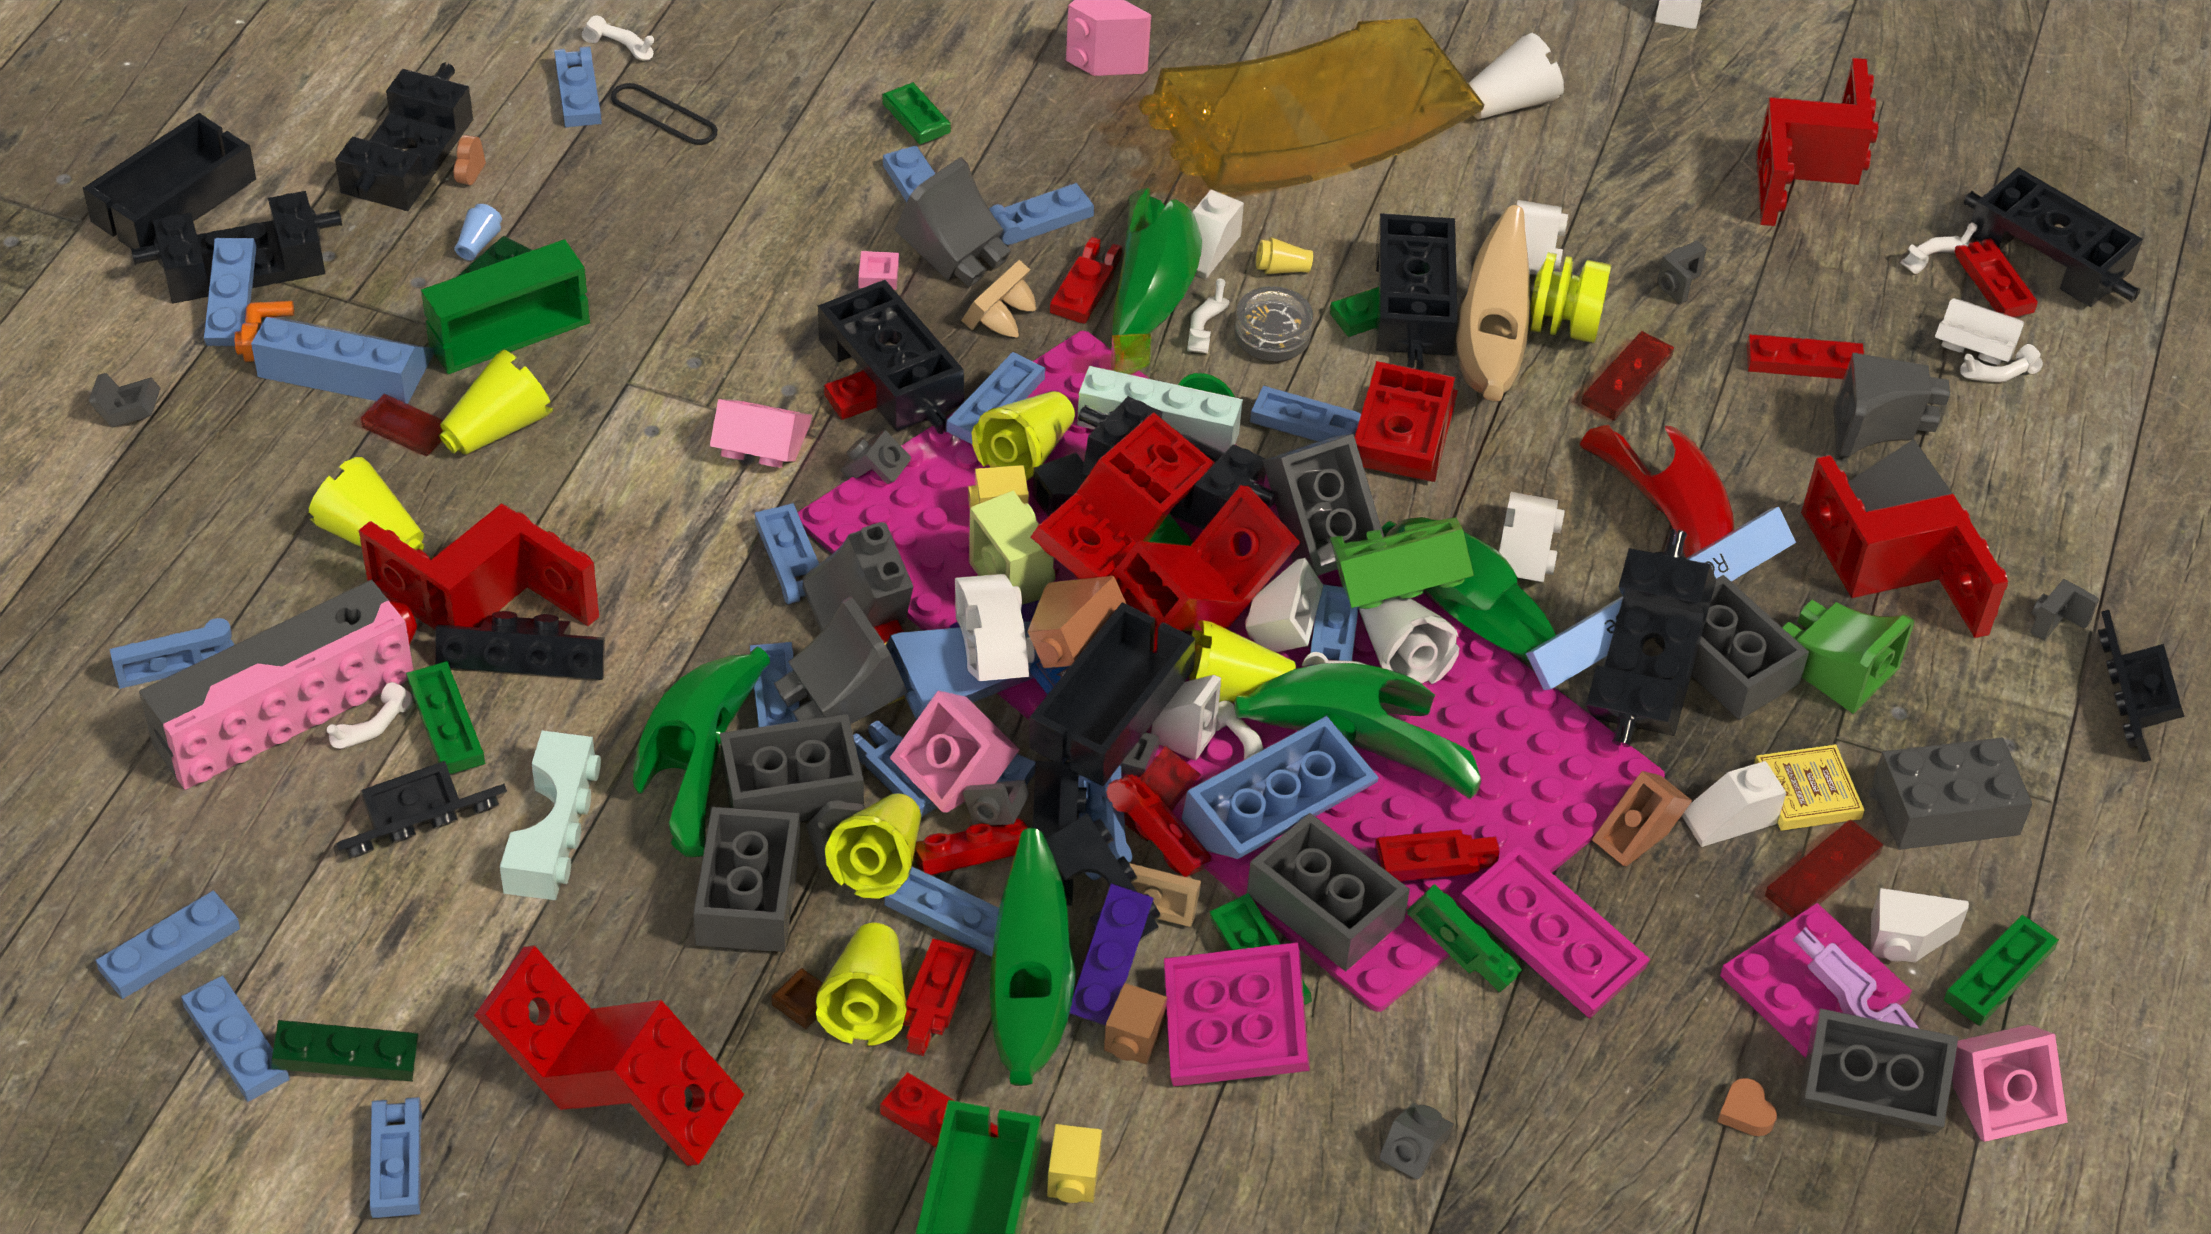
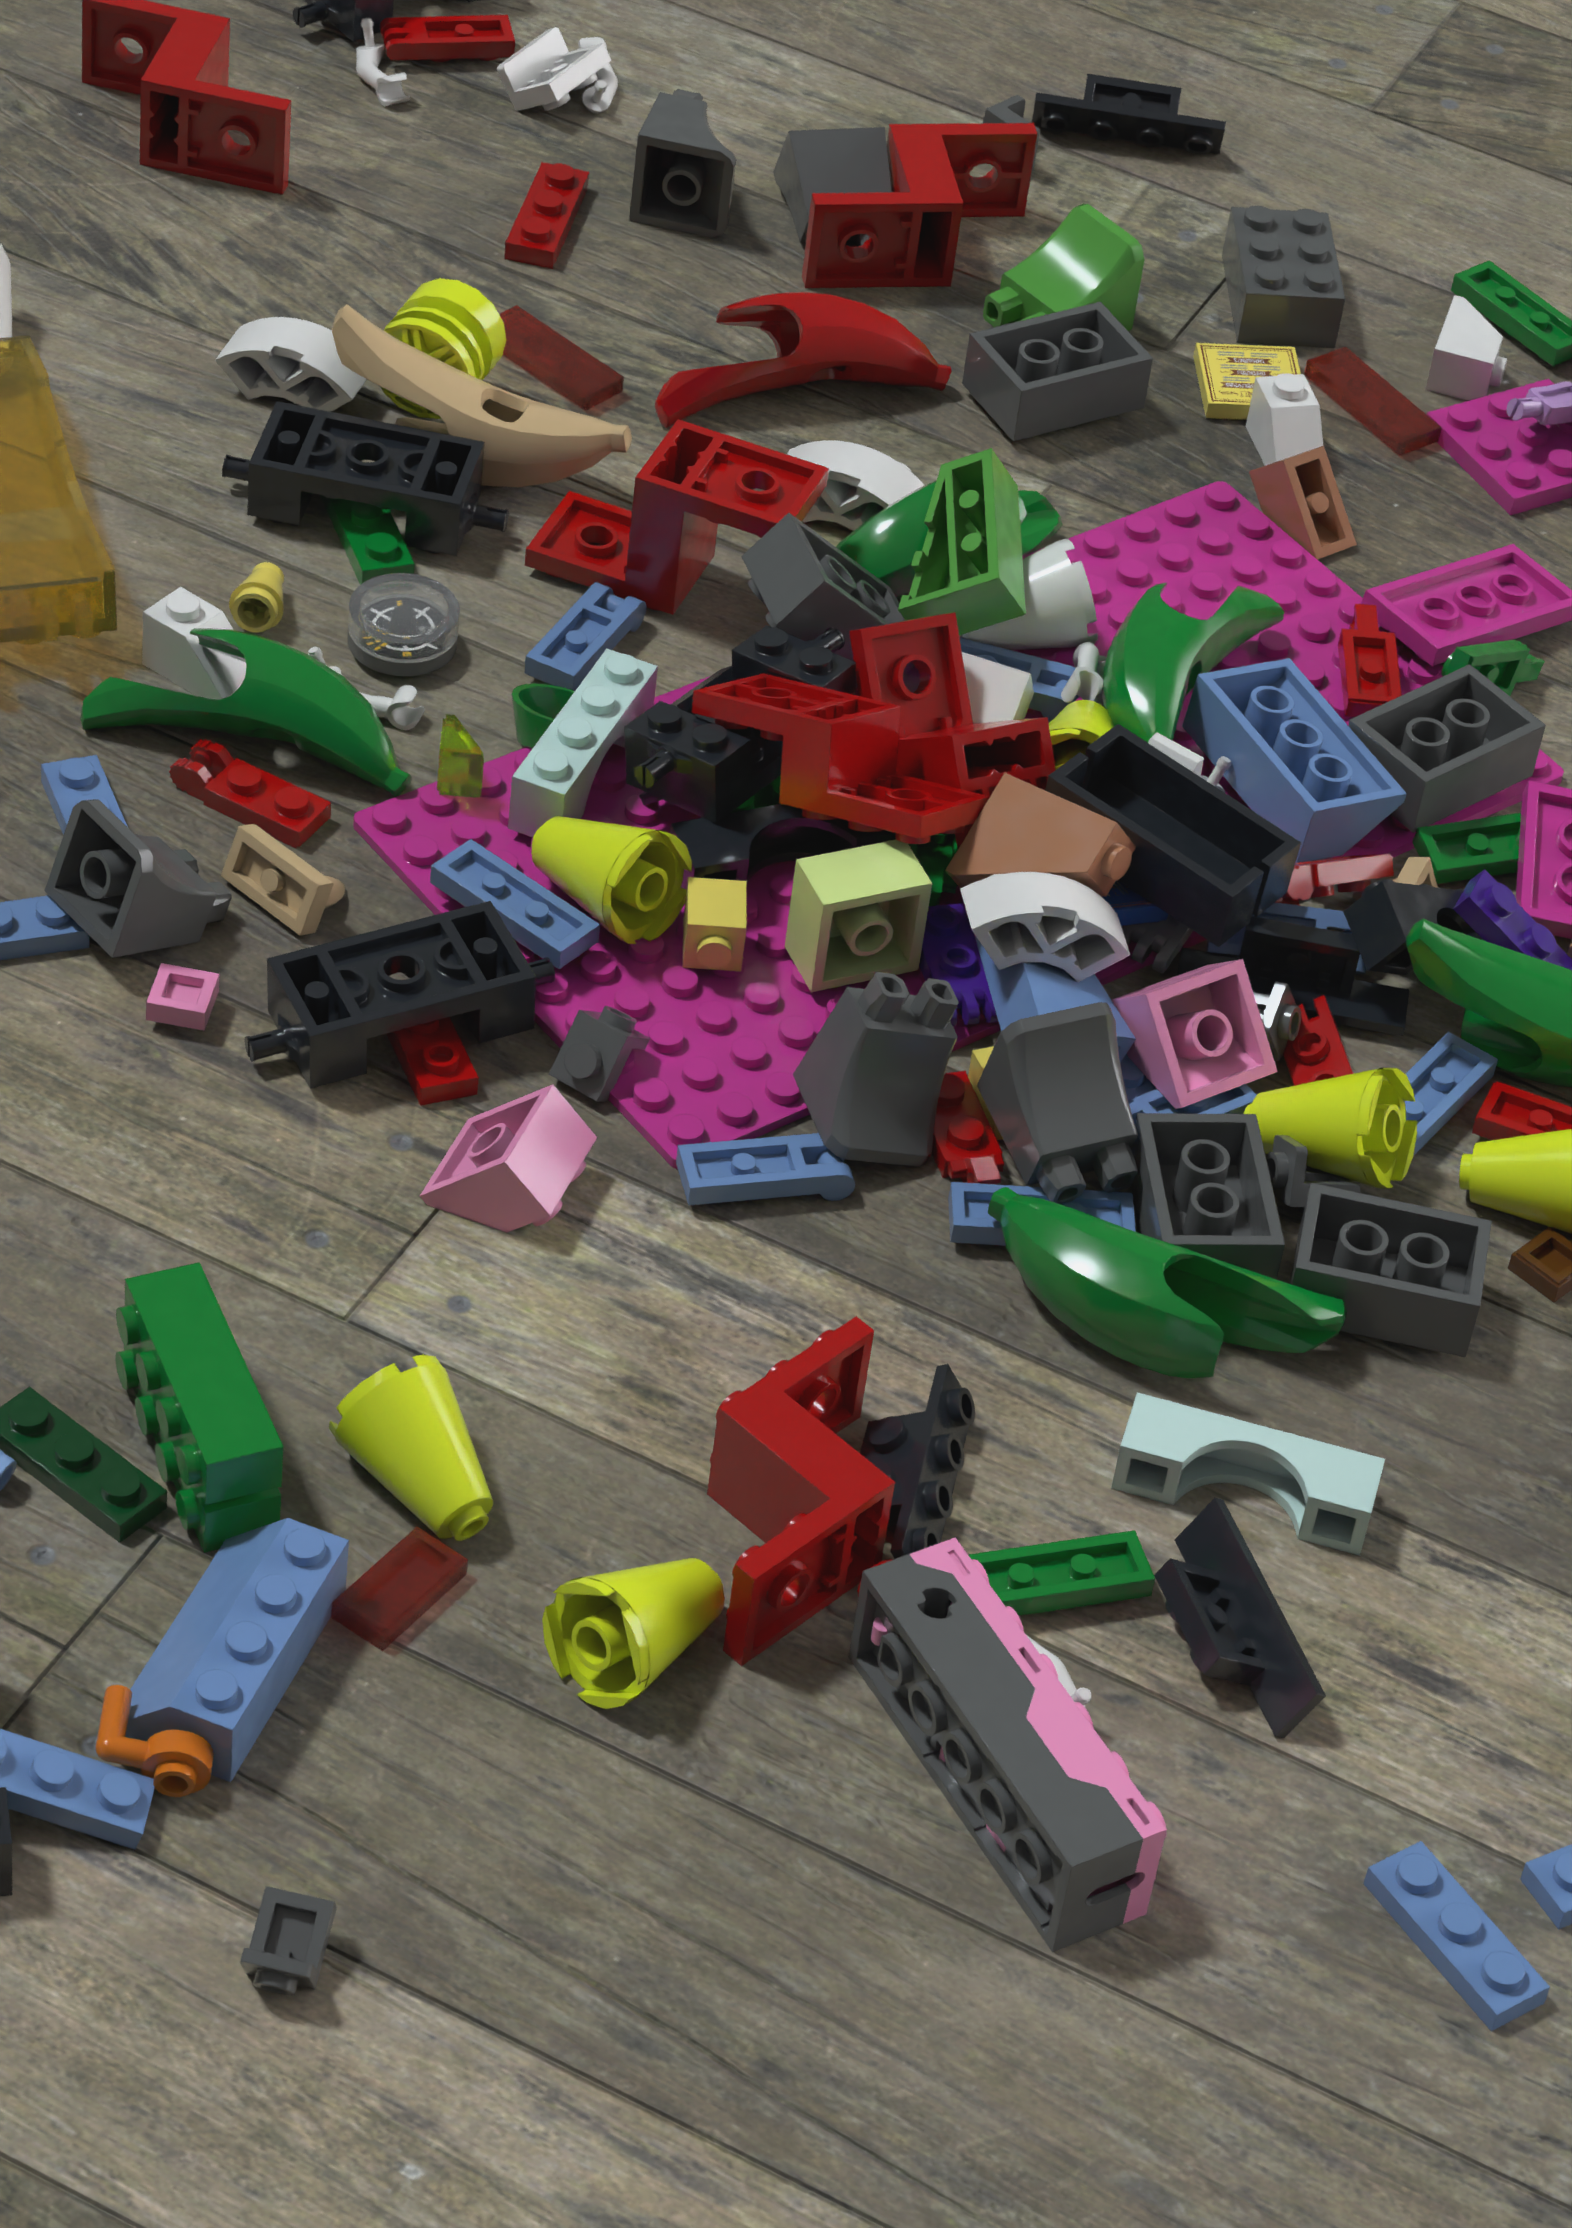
camera: 85 degrees left, 5 degrees down
(169, 654) = (893, 1892): medium blue plate -> none
(1591, 637) = (983, 401): light blue tile -> none
(1663, 600) = (1117, 449): black brick -> none
(1680, 269) = (380, 270): dark grey bracket -> none

